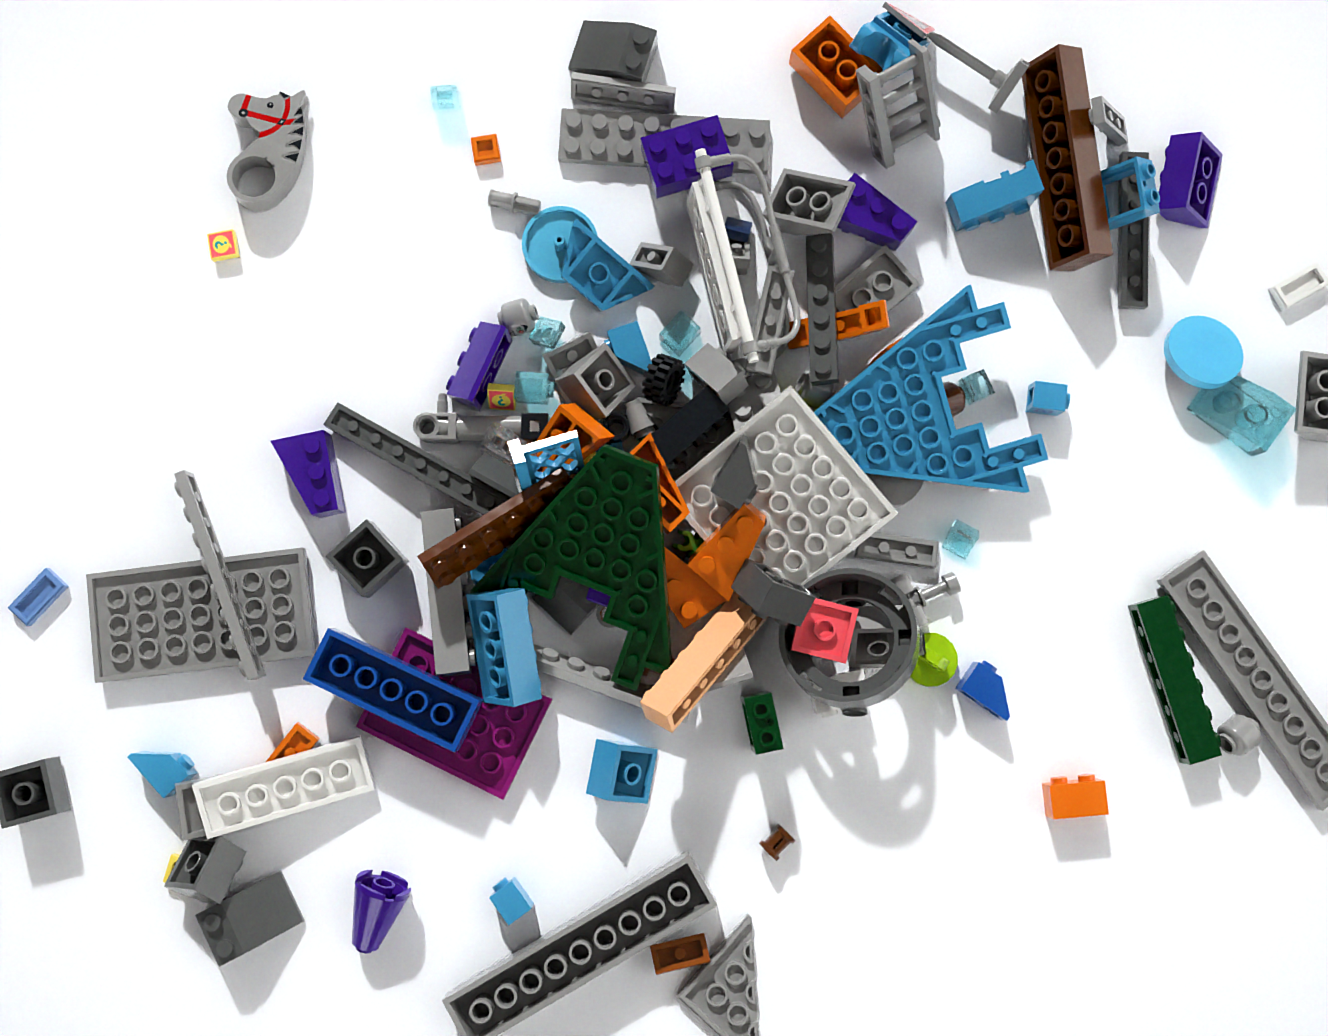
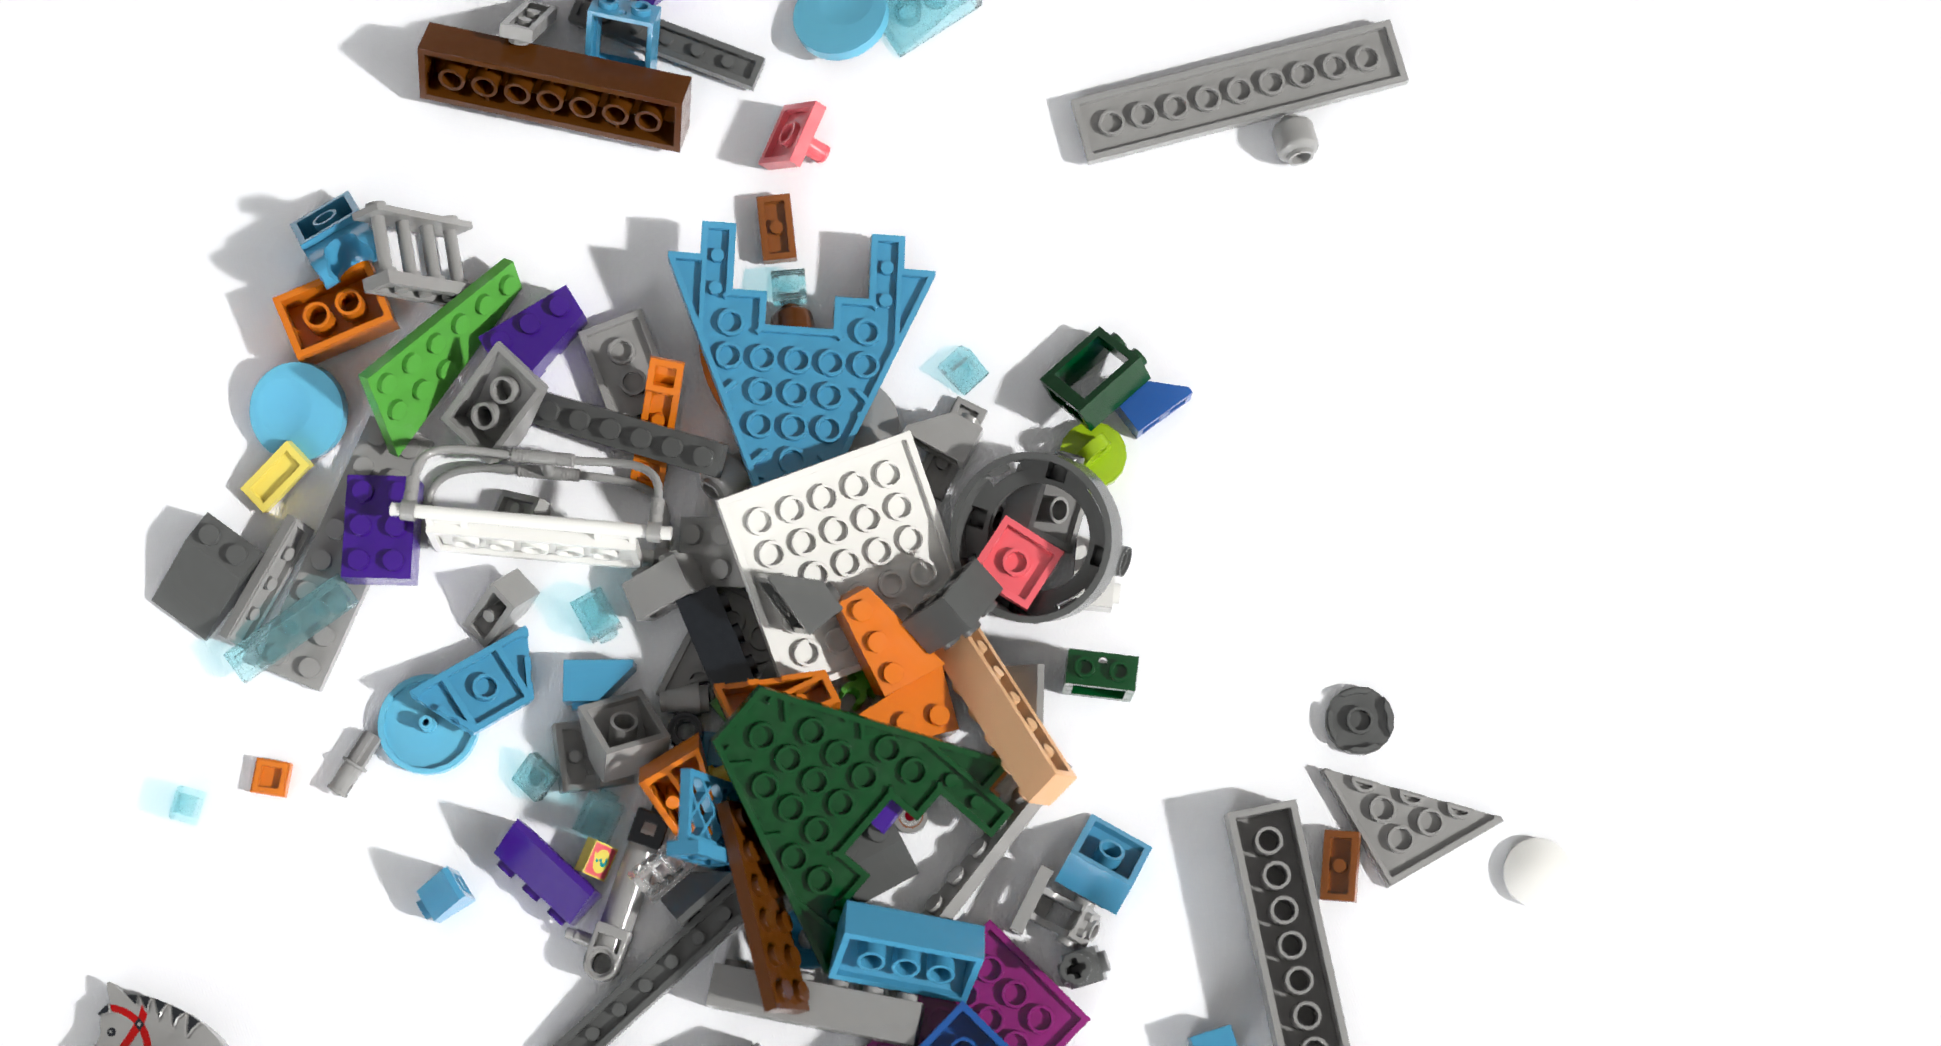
camera: 75 degrees left, 5 degrees down
(440, 299) = (444, 895): none -> dark azure slope
(518, 316) = (502, 805): light grey head -> none
(539, 781) = (1084, 967): none -> dark grey connector
(568, 768) = (1081, 926): none -> light grey tile
(594, 121) = (291, 628): none -> clear light blue tile
(663, 379) = (648, 652): black tyre -> none
(701, 72) = (277, 476): none -> light yellow tile
(738, 229) = (493, 498): dark blue tile -> none
(754, 68) = (299, 406): none -> medium azure piece
(770, 319) = (620, 498): light grey tile -> none
(777, 842) = (1246, 707): reddish brown bush -> none
(797, 932) = (1359, 720): none -> dark grey tile
(818, 140) = (422, 366): none -> bright green wing
(904, 545) = (948, 436): none -> light grey slope
(917, 597) = (1012, 401): light grey bar -> none
(982, 657) = (1110, 393): none -> dark green window
(995, 198) = (570, 185): dark azure wedge -> none
(1003, 82) = (333, 194): light grey piece -> none
(1018, 362) = (776, 228): none -> dark orange plate
(1047, 398) = (832, 211): dark azure brick -> none
(1075, 797) = (1306, 347): orange brick -> none
(1093, 349) = (794, 137): none -> coral tile
(1175, 680) = (1208, 186): dark green brick -> none

